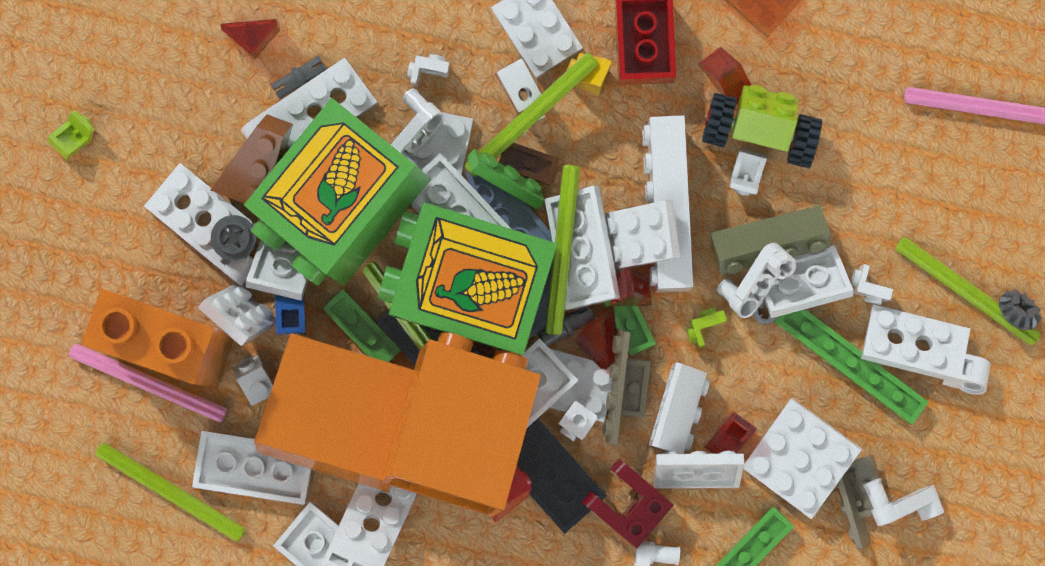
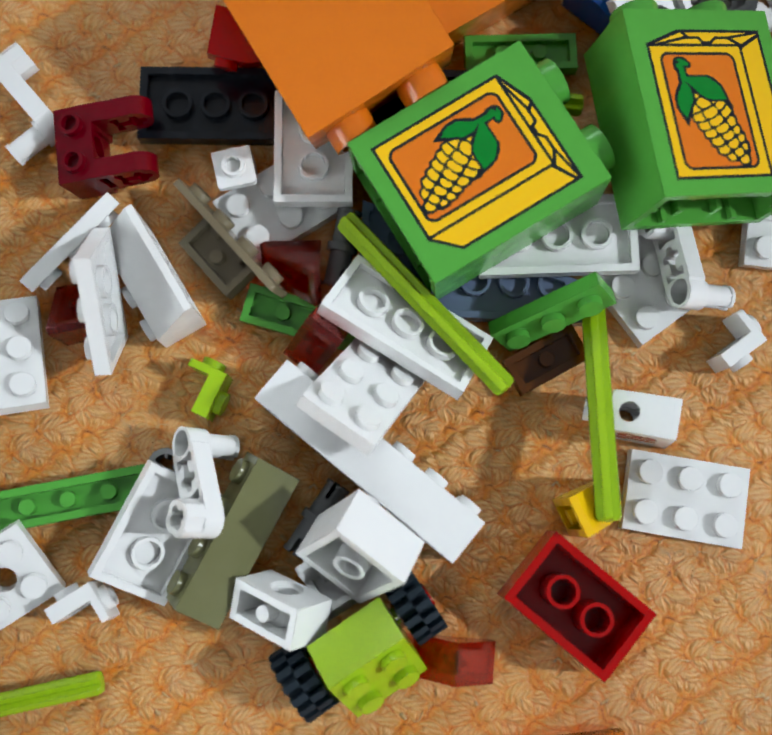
camera: 125 degrees right, 5 degrees down
(717, 168) = (361, 547): none -> white brick
(721, 208) = (328, 496): none -> dark grey pin
(722, 409) = (100, 300): none -> white plate
(782, 182) = (280, 609): none -> white brick

